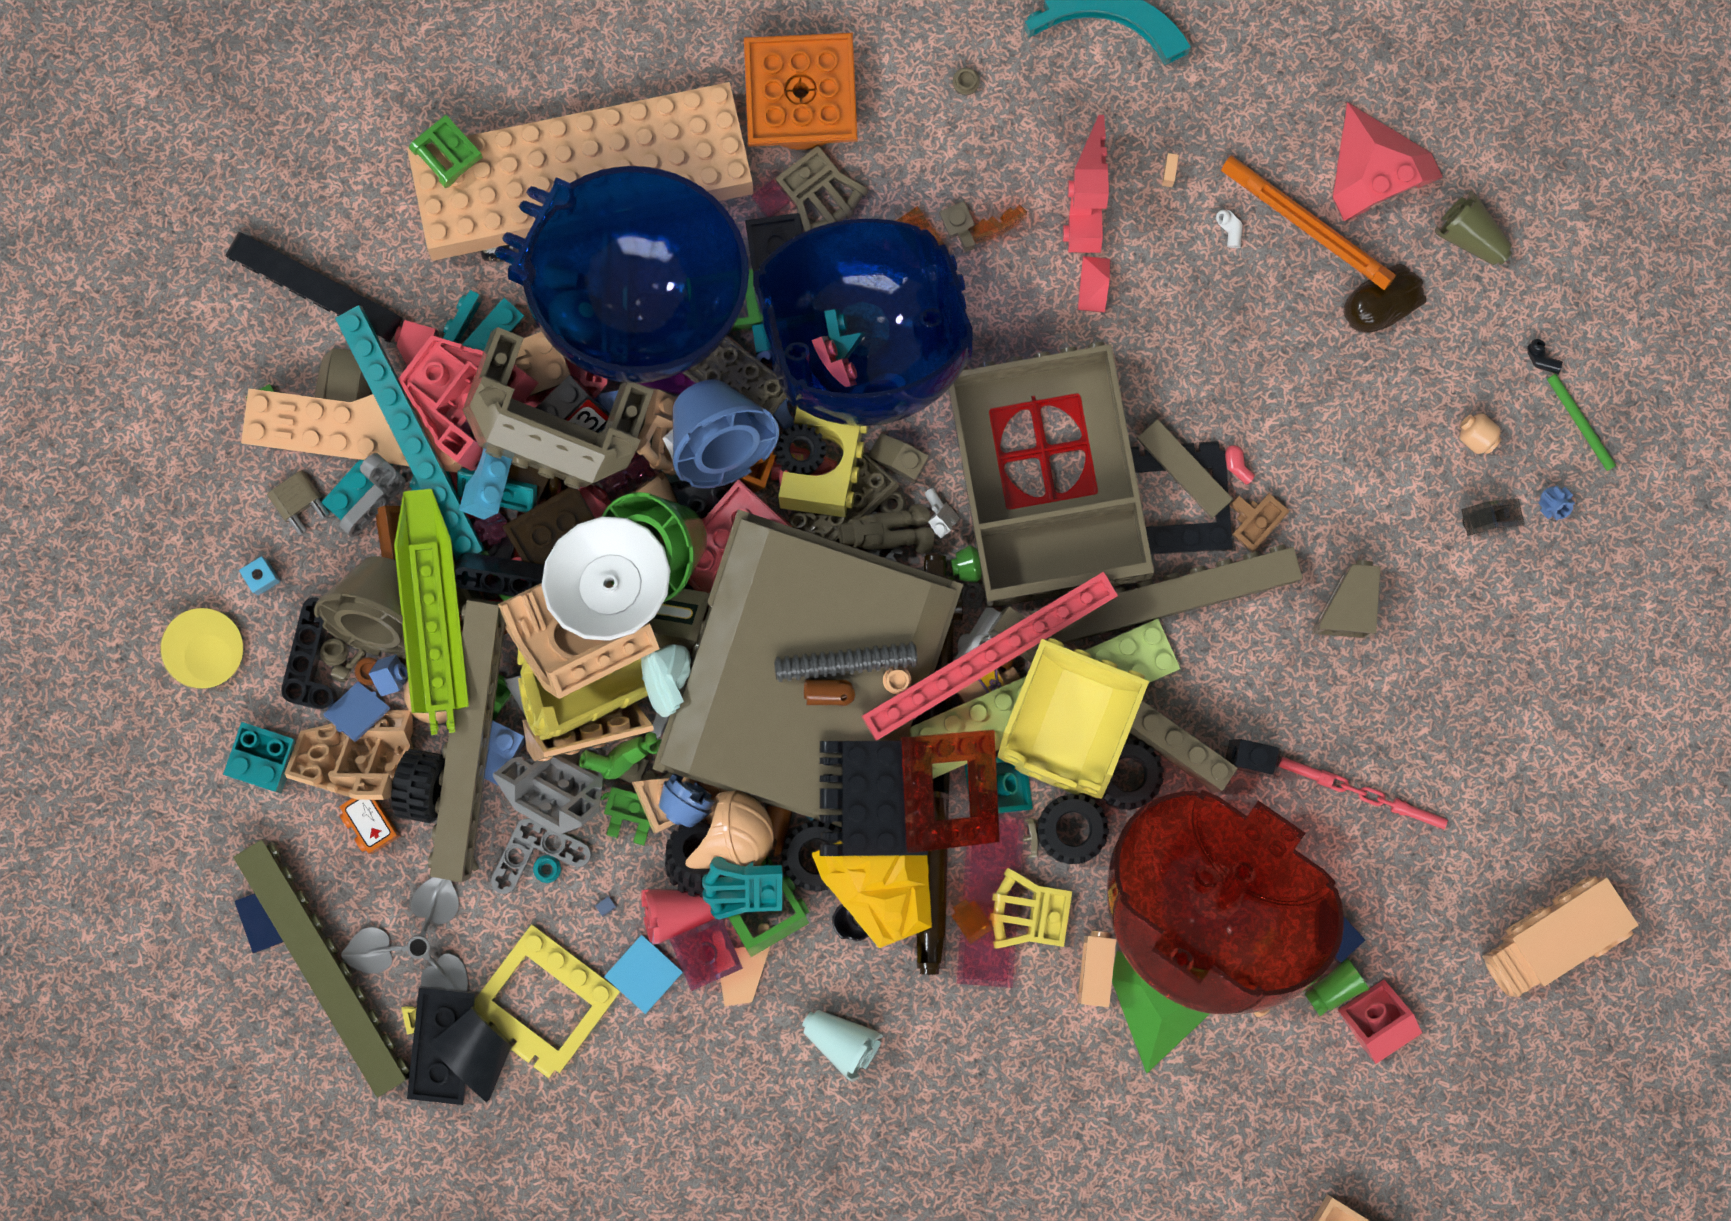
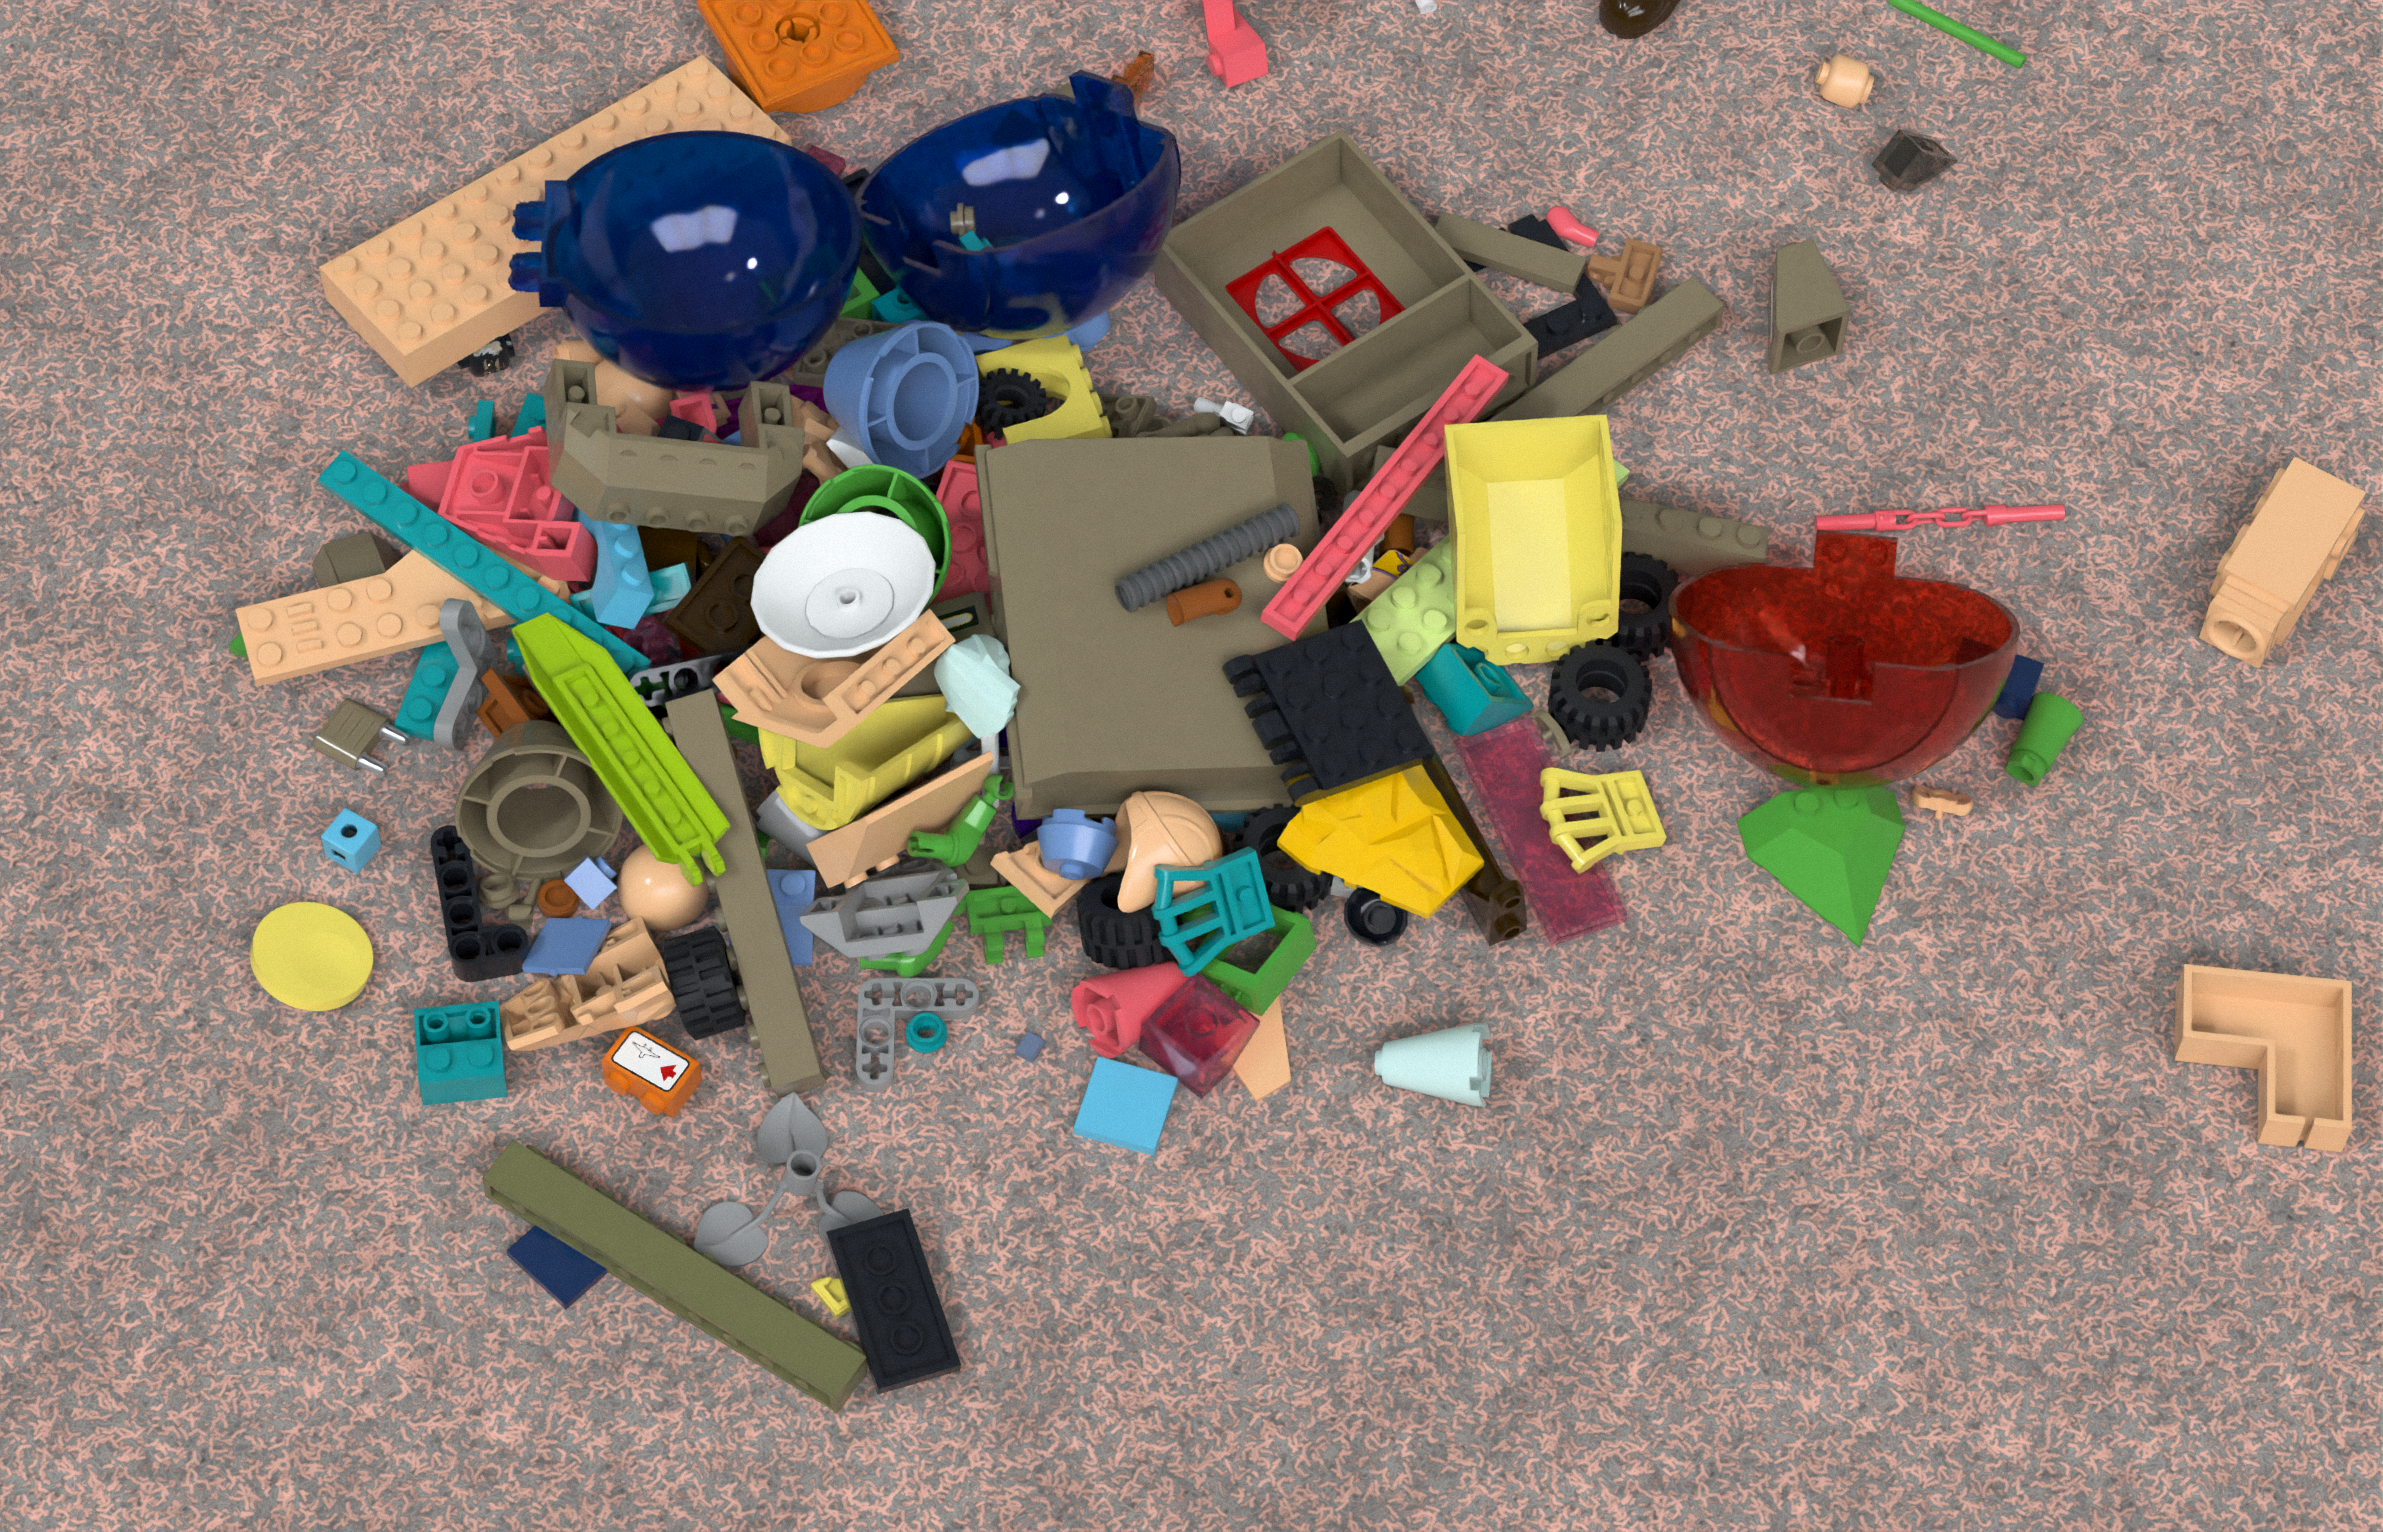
camera: 30 degrees left, 25 degrees down
(309, 283) = (235, 483): black beam -> none
(452, 145) = (378, 231): bright green plate -> none
(473, 1052) = (943, 1280): black slope -> none
(567, 970) = (1017, 1140): light yellow hinge -> none
(810, 176) = (861, 121): dark tan plate -> none
(836, 295) = (963, 220): none -> dark tan plate
(899, 457) = (1142, 374): dark tan slope -> none
(918, 755) = (1371, 629): clear red plate -> none
(971, 920) = (1532, 845): clear orange slope -> none
(1094, 284) = (1281, 110): coral slope -> none
(1096, 969) = (1725, 836): light nougat window -> none
(1253, 757) = (1789, 517): black torso -> none
(1380, 1021) = (2121, 755): coral slope -> none
(1556, 502) = (1981, 115): medium blue gear -> none

